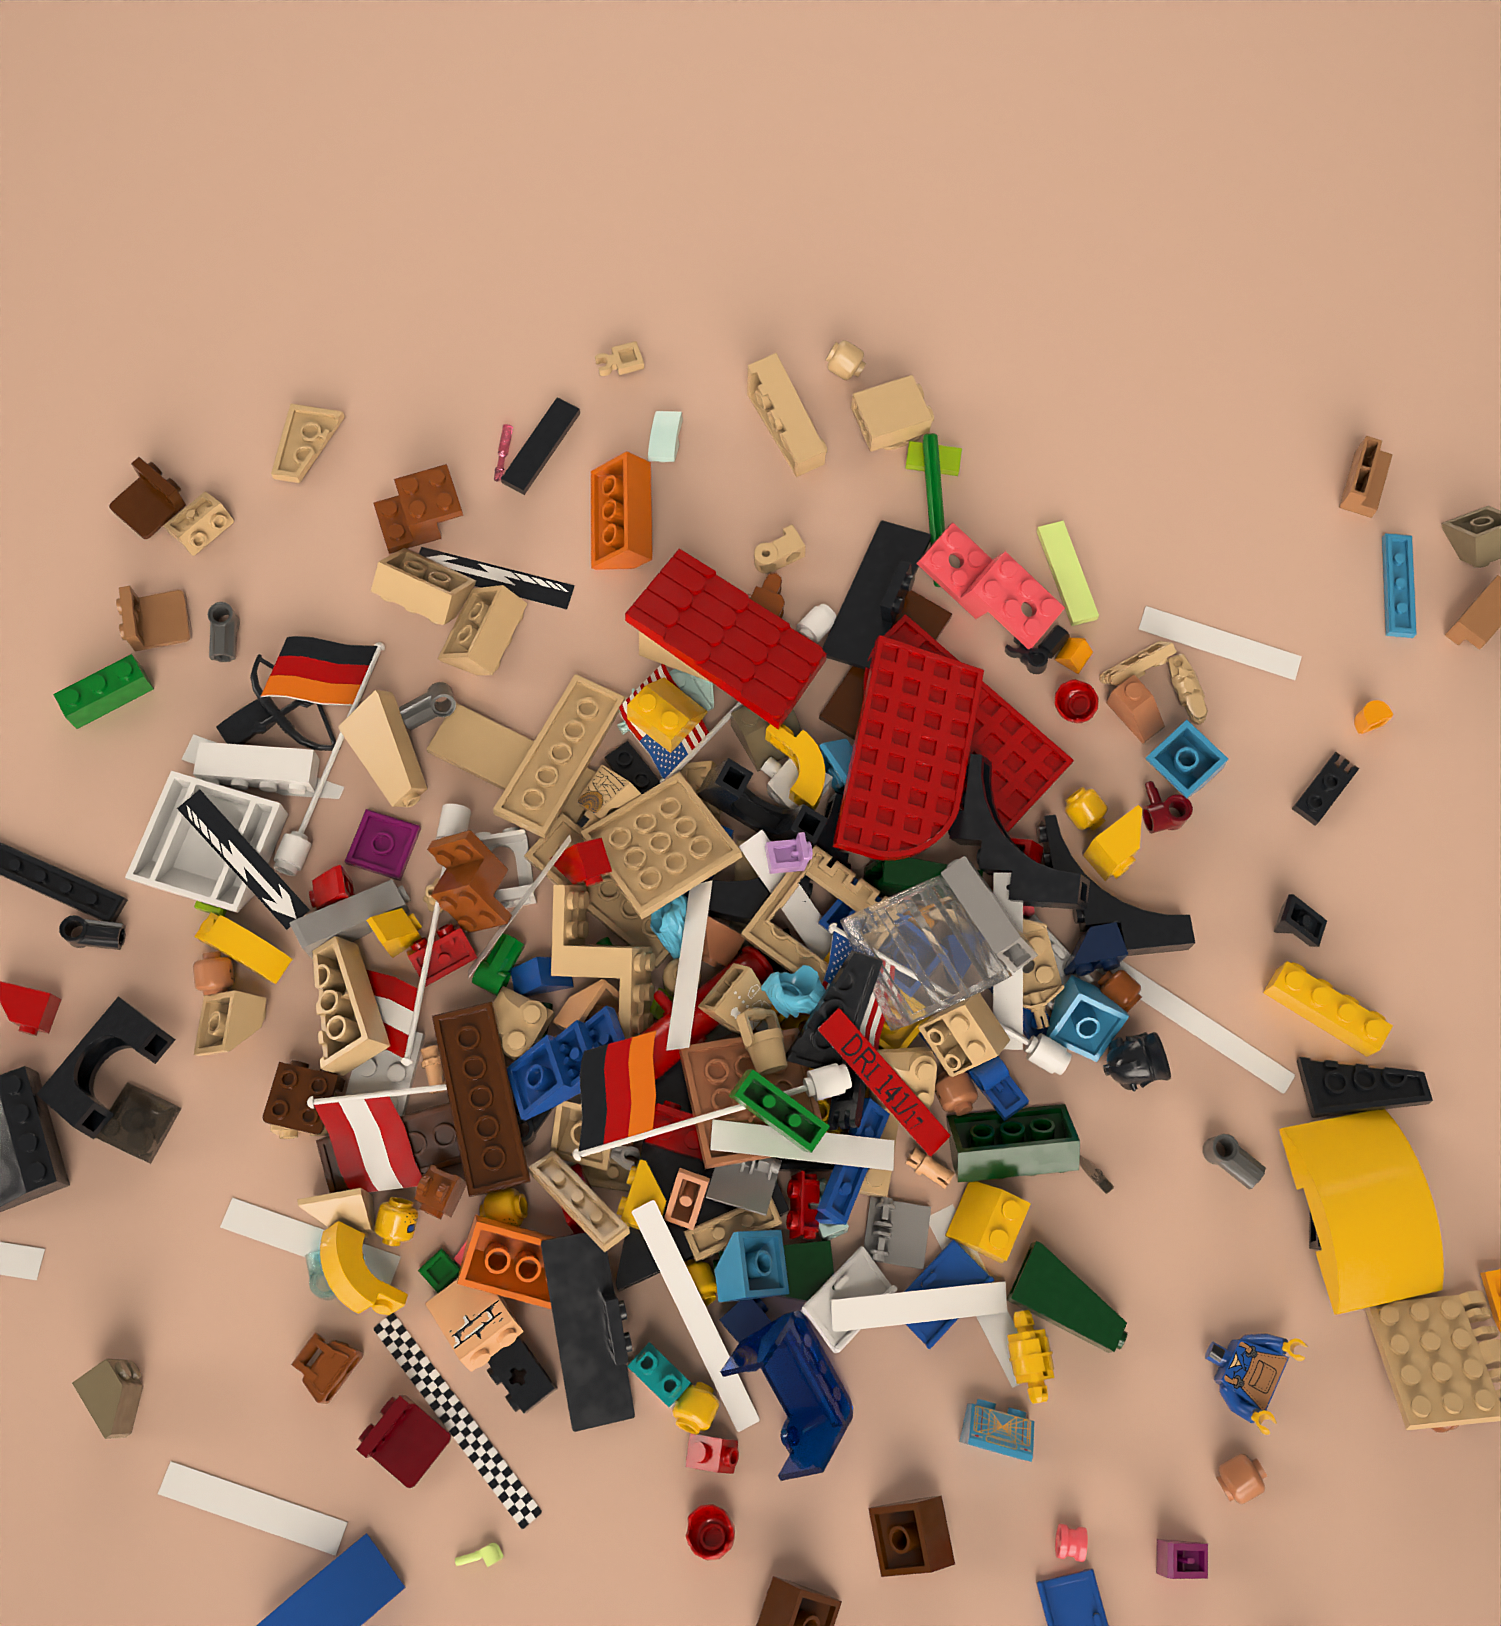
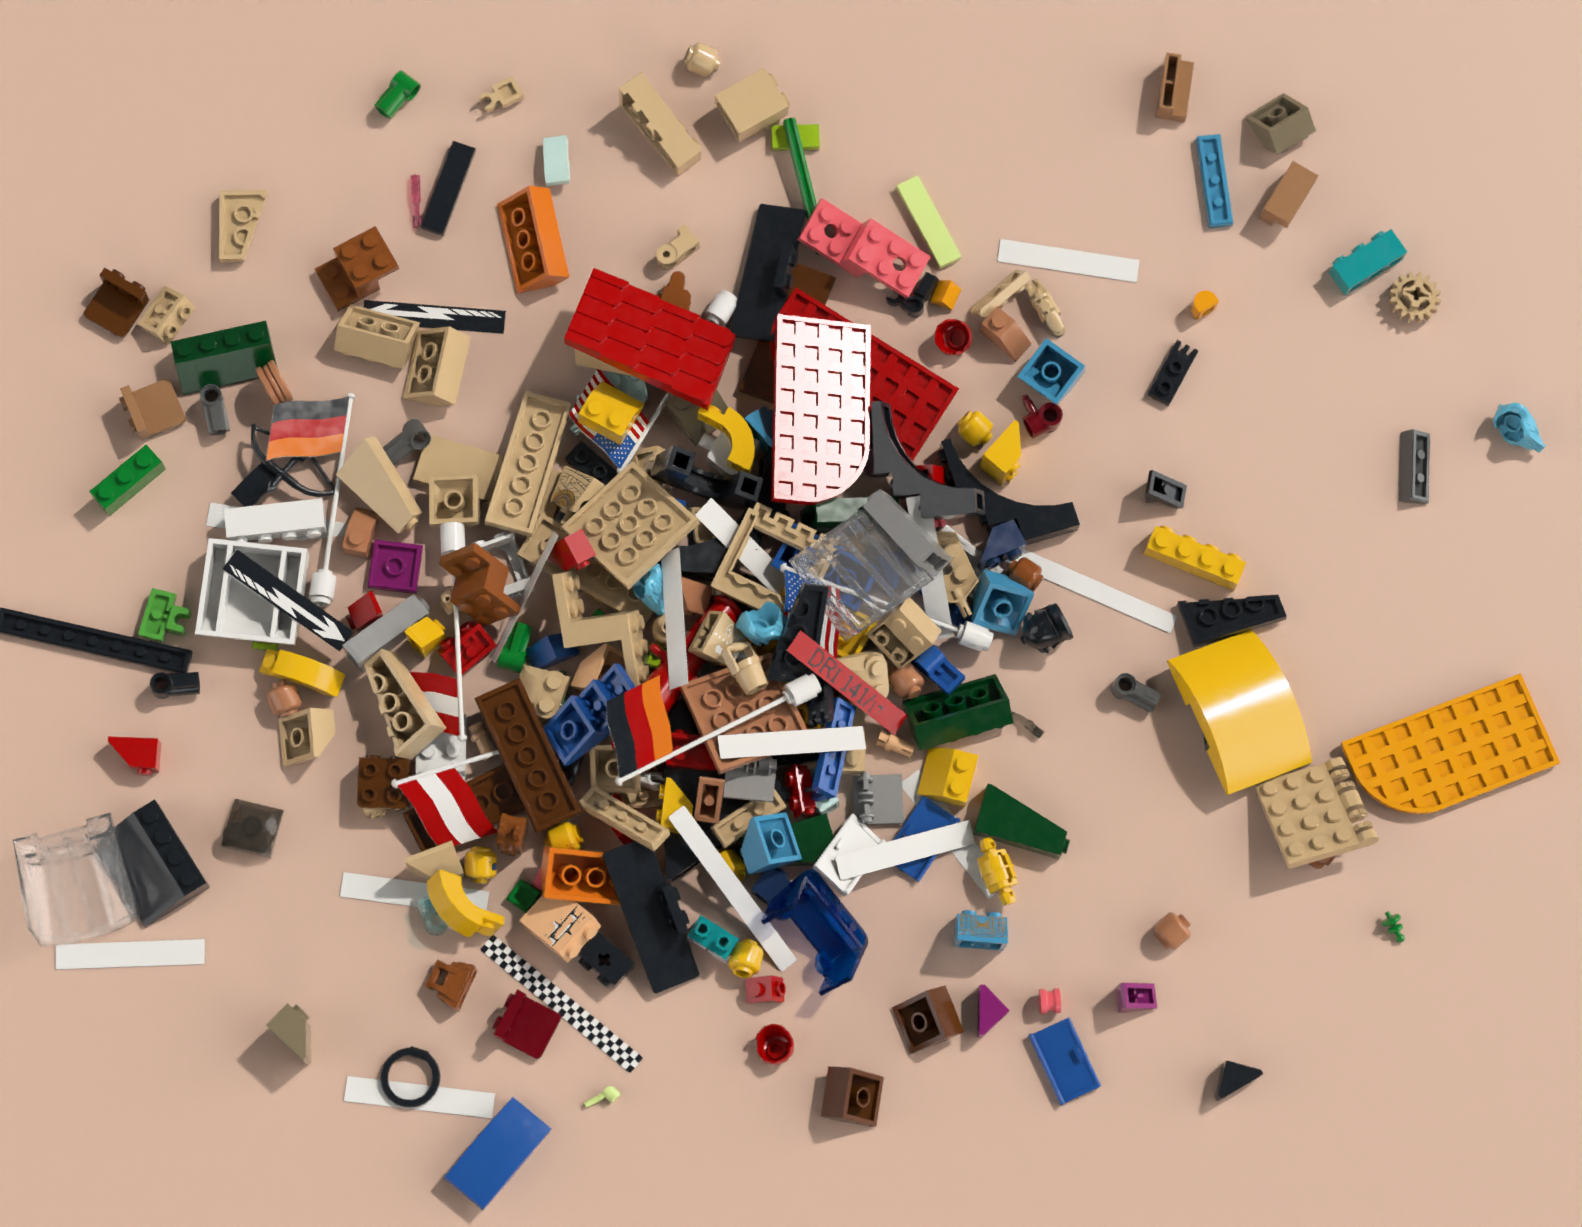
camera: 15 degrees left, 5 degrees up
(71, 1085) = (218, 757): black arch -> none
(100, 851) = (162, 616): none -> bright green plate
(250, 577) = (222, 356): none -> dark green slope
(264, 1451) = (419, 1054): none -> black piece
(294, 613) = (274, 383): none -> nougat head
(350, 799) = (360, 533): none -> nougat slope
(466, 781) = (454, 500): none -> tan slope
(512, 336) = (401, 89): none -> green piece
(779, 1110) = (768, 718): green brick -> none
(788, 854) = (737, 514): lavender bracket -> none
(992, 1541) = (990, 1010): none -> magenta slope
(1251, 1373) = (1169, 851): torso -> none

